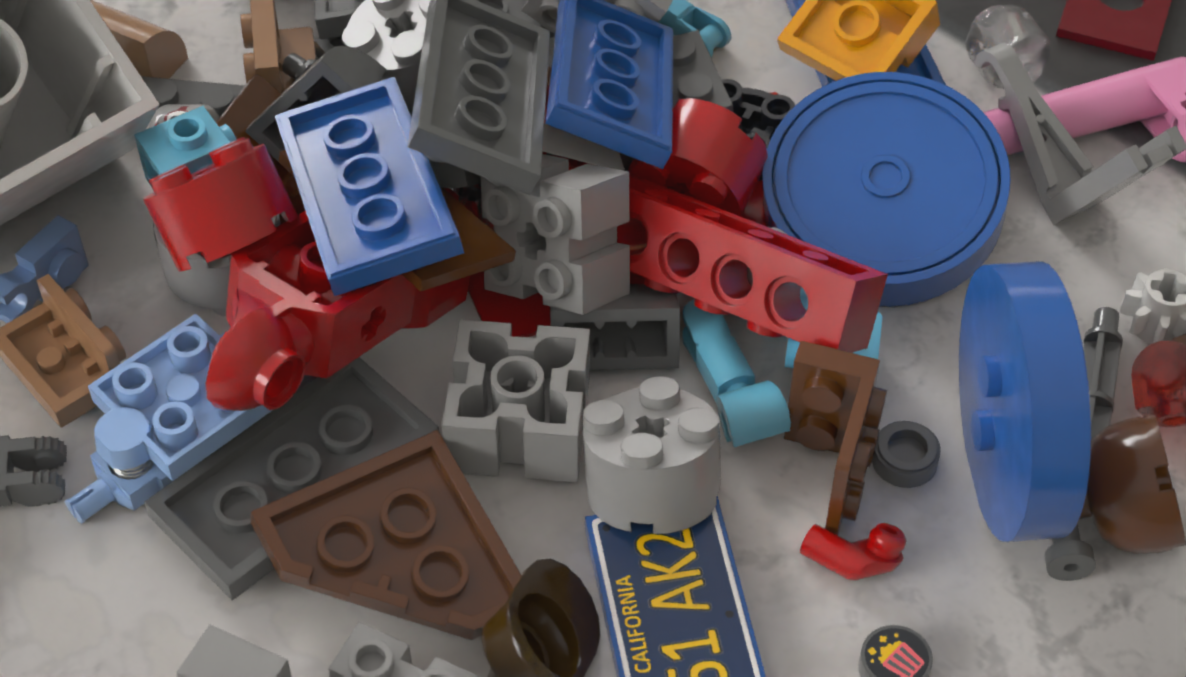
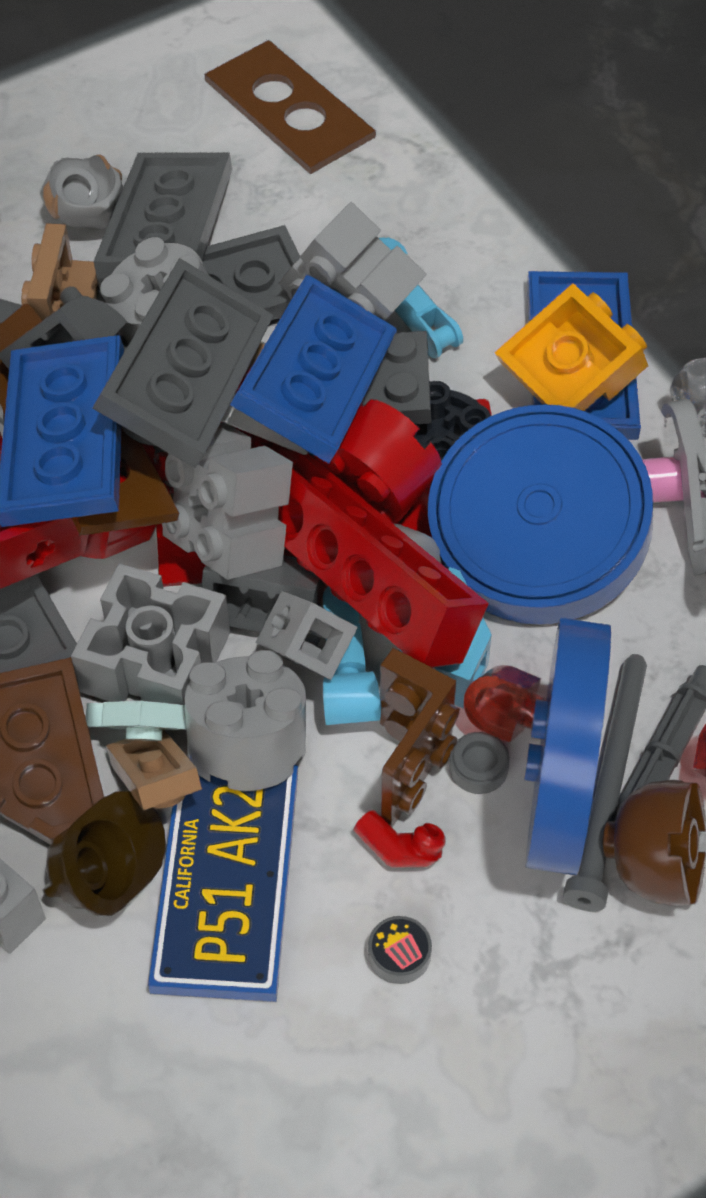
camera: 15 degrees right, 5 degrees up
(537, 478) = (139, 718): none -> light aqua plate
(567, 529) = (154, 771): none -> medium nougat plate
(676, 342) = (296, 630): none -> light grey brick
(916, 382) = (502, 701): none -> clear red plate

